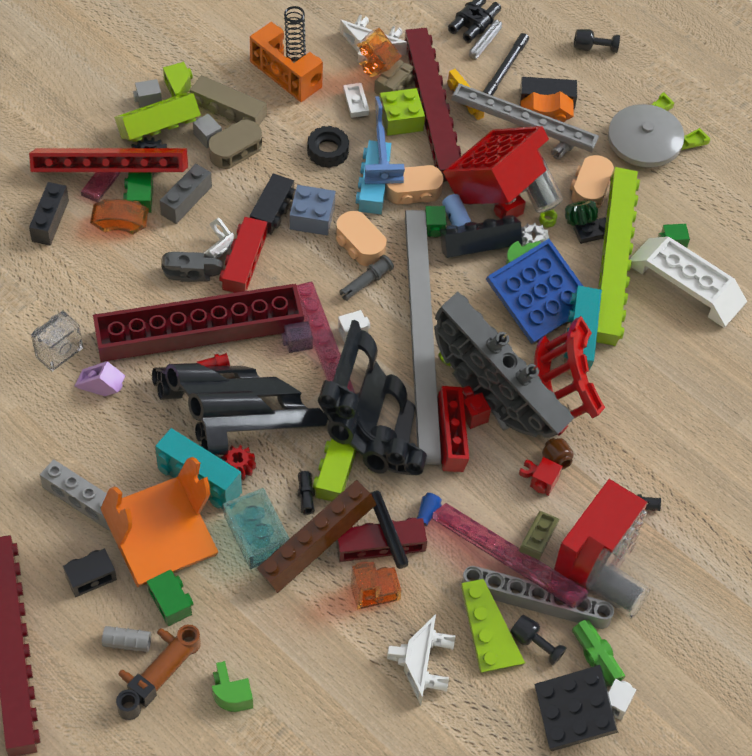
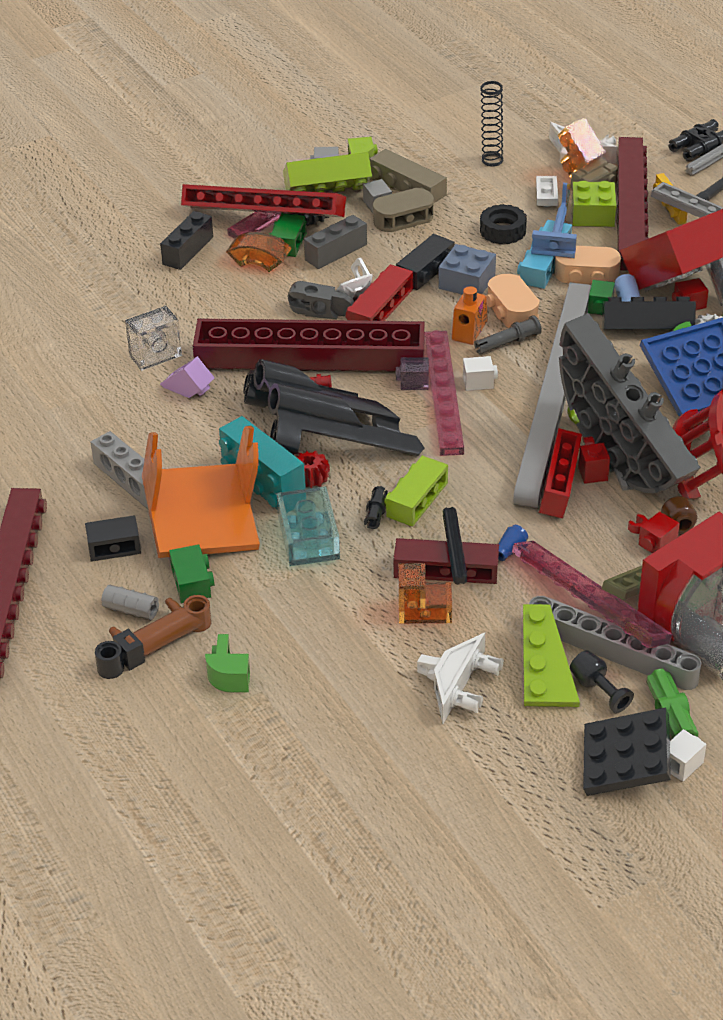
camera: 20 degrees right, 15 degrees down
(297, 78) = (488, 161): orange plate -> none
(316, 536) = (370, 537): reddish brown brick -> none
(329, 259) = (470, 308): none -> orange torso
(355, 416) = (459, 449): black panel -> none

